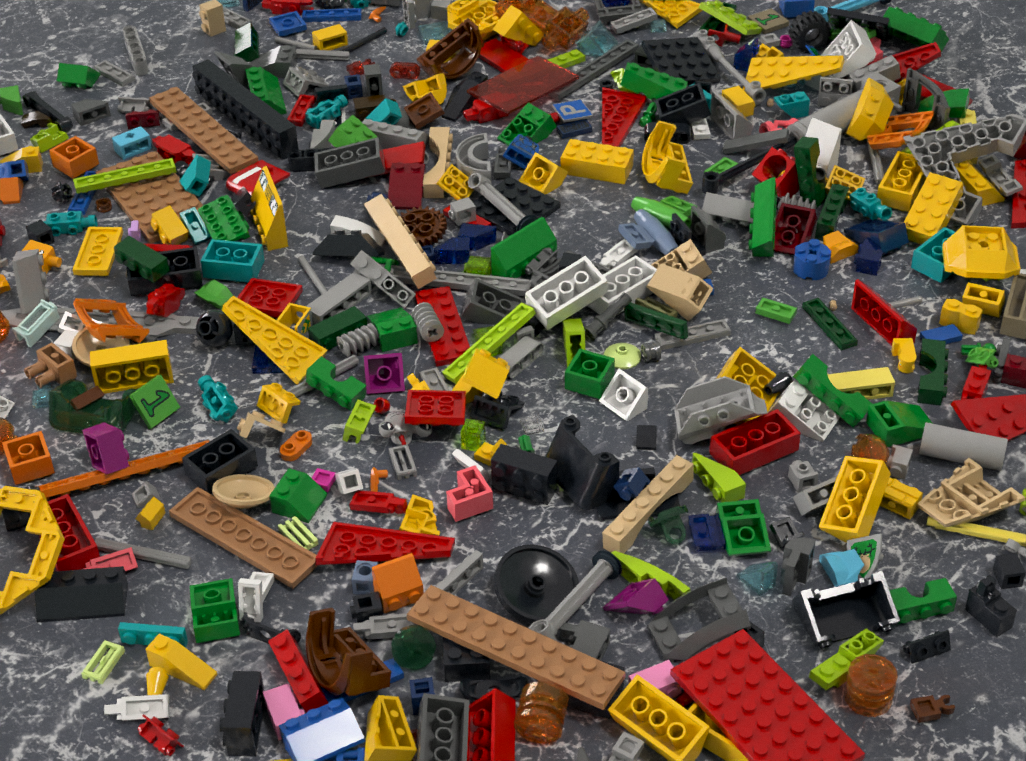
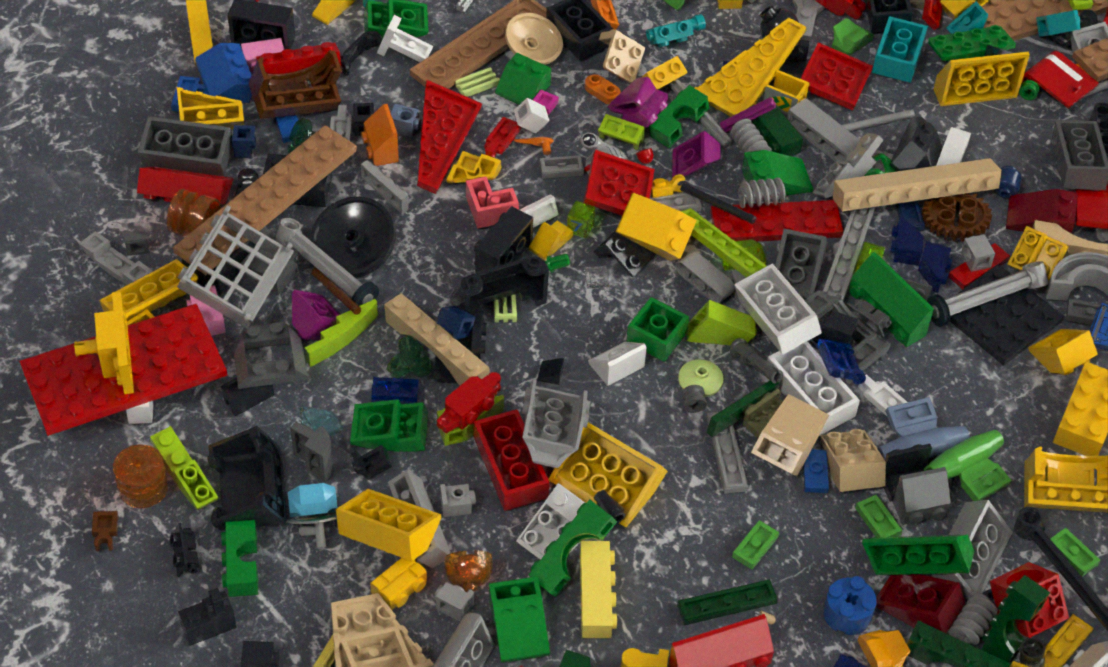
camera: 95 degrees right, 10 degrees up
(330, 404) = (640, 102): none -> magenta piece
(331, 337) = (749, 113): none -> magenta axle
(437, 352) = (718, 203): none -> black bar
(611, 262) = (840, 360): none -> clear blue plate
(613, 578) = (336, 291): none -> reddish brown bar
(614, 660) = (266, 282): none -> light grey window
(716, 464) = (469, 402): none -> red hinge
(728, 254) = (878, 517): none -> bright green plate
(761, 697) = (111, 343): none -> yellow brick

